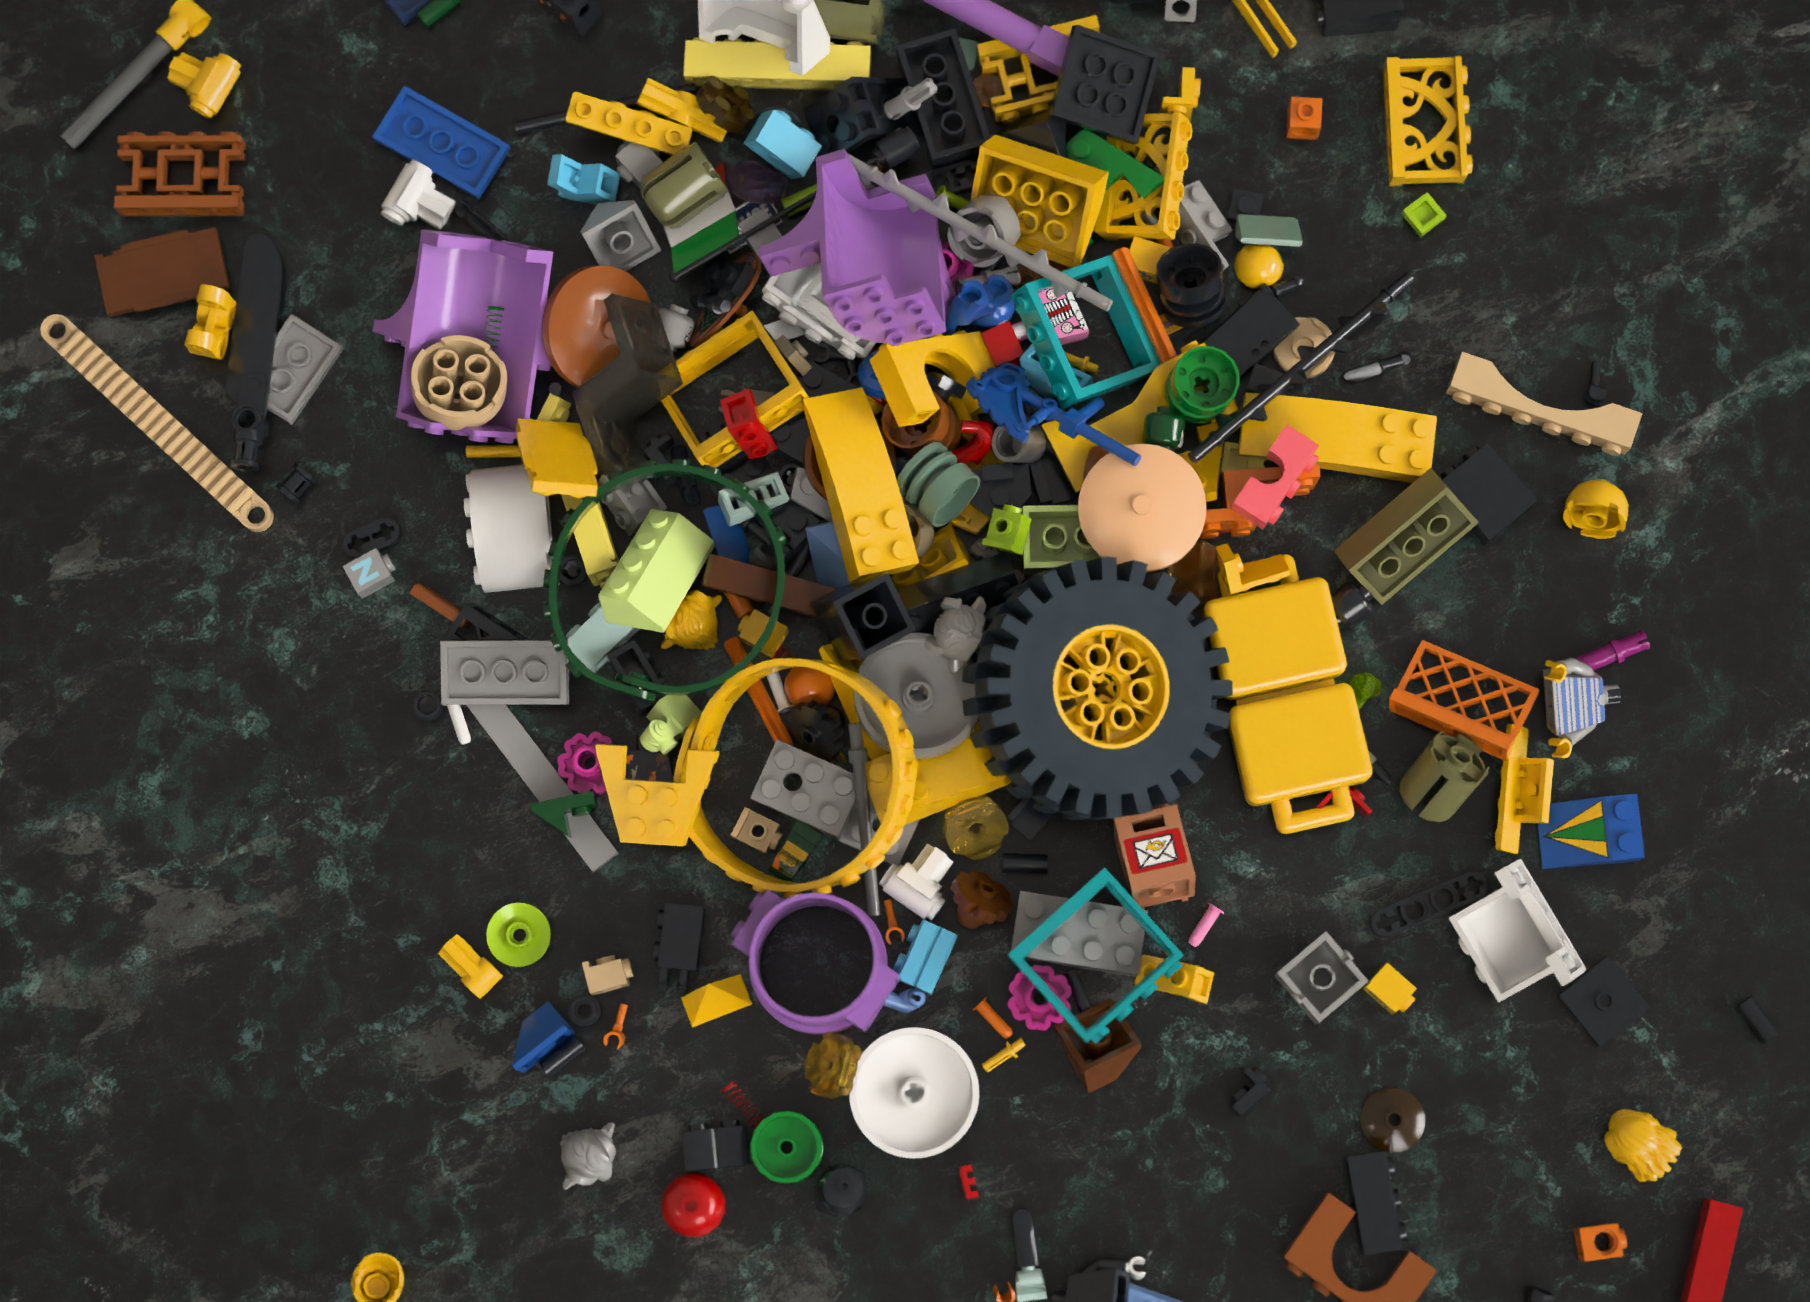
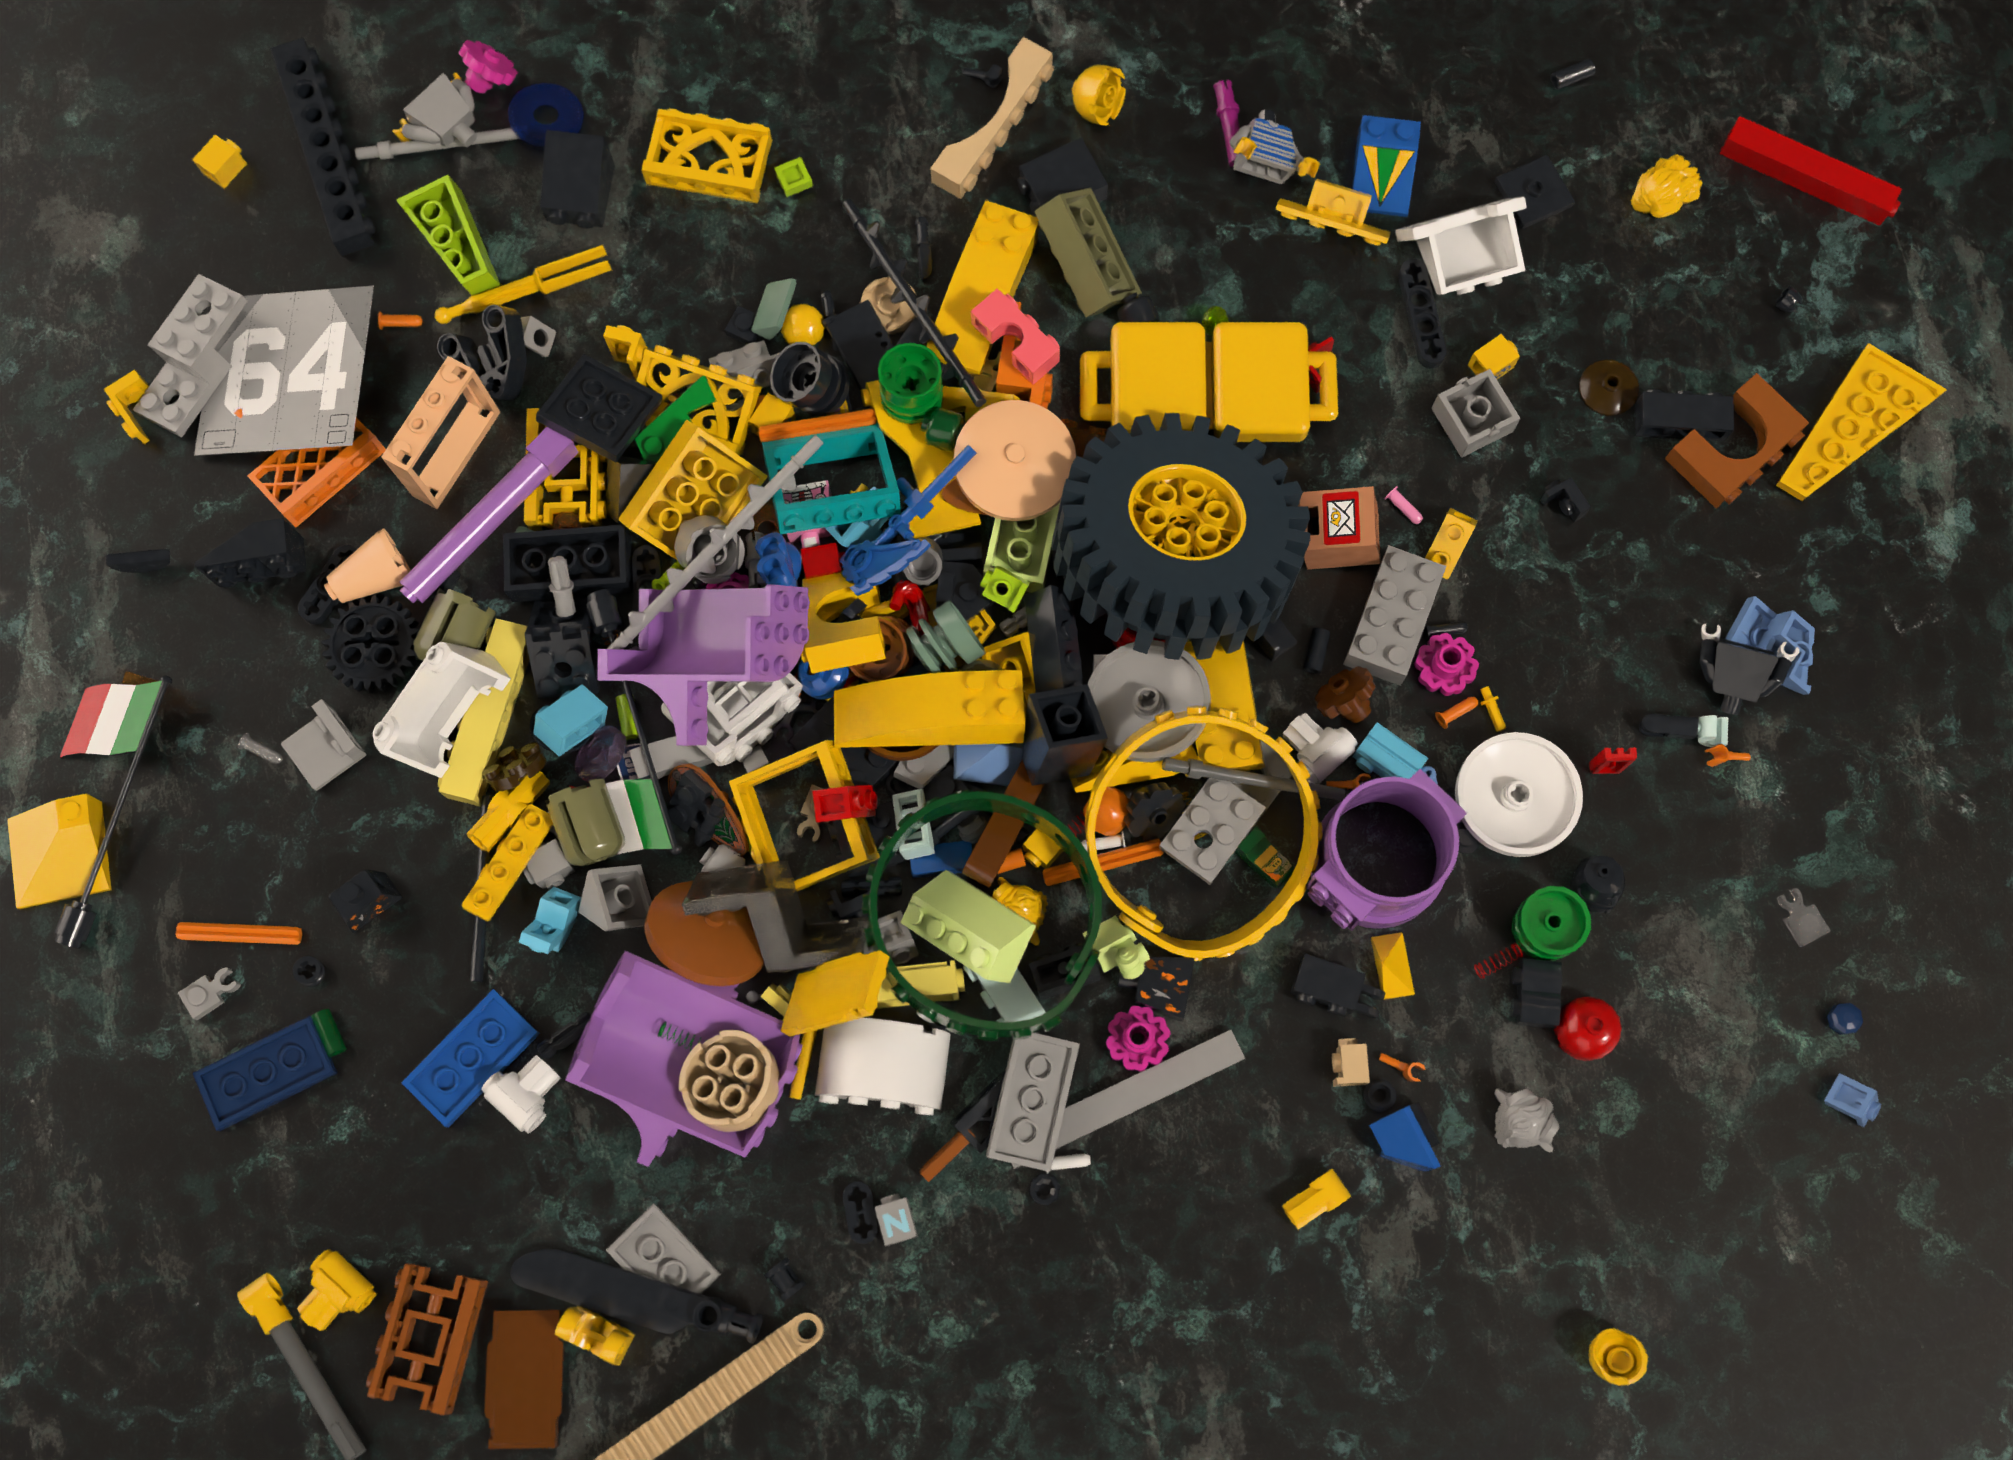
camera: 80 degrees left, 5 degrees down
(505, 924) = (1310, 1139): lime dish -> none
(556, 810) = (1182, 1079): dark green slope -> none
(654, 809) = (1202, 979): yellow wing -> none
(743, 831) = (1233, 900): tan brick -> none
(794, 353) = (783, 747): dark tan plate -> none
(839, 1079) = (1493, 854): clear yellow plate -> none
(957, 631) = (1098, 645): light grey hair -> none
(972, 811) = (1268, 696): clear yellow plate -> none
(1066, 911) = (1385, 619): teal window -> none
(1107, 1059) = (1500, 619): reddish brown slope -> none
(1242, 578) = (1095, 391): yellow bracket -> none
(1304, 118) = (676, 254): orange brick -> none
(1439, 760) = (1315, 269): olive cylinder -> none
(1452, 723) = (1268, 248): orange fence -> none
(1585, 1242) = (1743, 250): orange brick -> none

